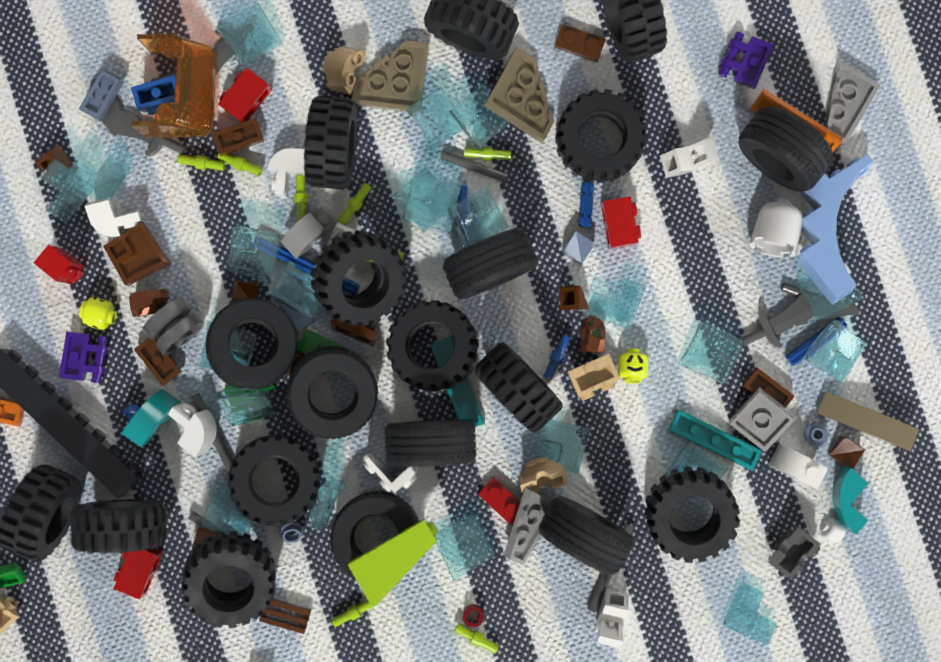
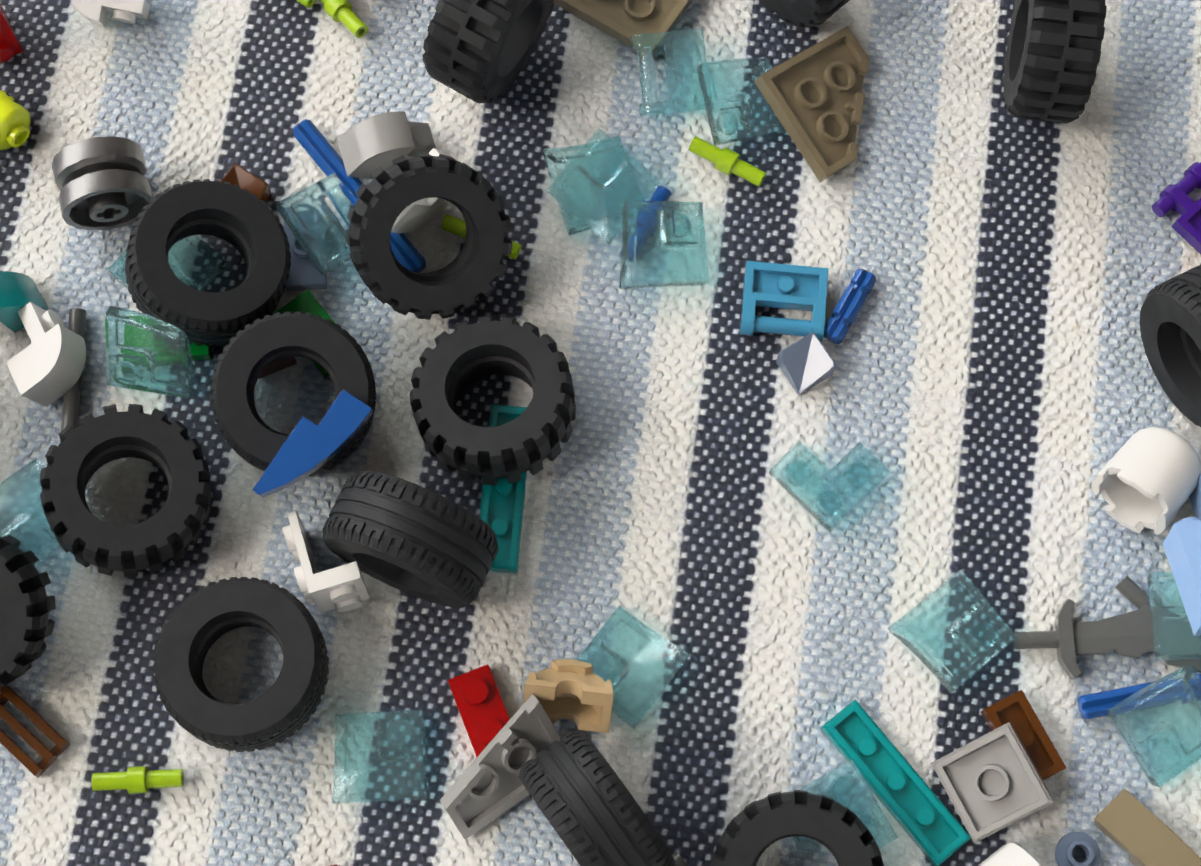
camera: 20 degrees right, 15 degrees down
(136, 254) = (108, 63): reddish brown plate -> none
(148, 302) = (77, 126): copper rock -> none
(160, 365) = (49, 235): reddish brown plate -> none
(253, 252) = (287, 138): clear light blue plate -> none
(283, 164) = (398, 38): white brick -> none
(291, 532) = (104, 602): sand blue plate -> none
(300, 196) = (404, 93): lime bar -> none
(327, 497) = (188, 568): clear light blue plate -> none
(355, 204) = (484, 140): lime bar -> none
(359, 419) = (314, 445): none -> blue slope
(361, 333) = (381, 325): reddish brown plate -> none
(391, 560) = (244, 698): lime slope -> none
(474, 166) = (697, 171): dark grey bar -> none
(489, 263) = (649, 305): black tyre -> none
(518, 387) = (601, 519): black tyre -> none
(548, 211) = (784, 288): none -> dark azure plate
(557, 357) = (689, 519): blue bar -> none
(572, 298) = (758, 436): reddish brown slope -> none
(580, 43) = (949, 68): reddish brown plate -> none
(592, 335) = (763, 512): copper rock -> none
(594, 375) = (735, 576): tan cylinder -> none
(607, 106) = (936, 163): black tyre -> none
(620, 222) = (891, 355): red brick -> none
(633, 366) = (809, 590): neon yellow head -> none
(689, 158) = (1047, 308): white brick -> none

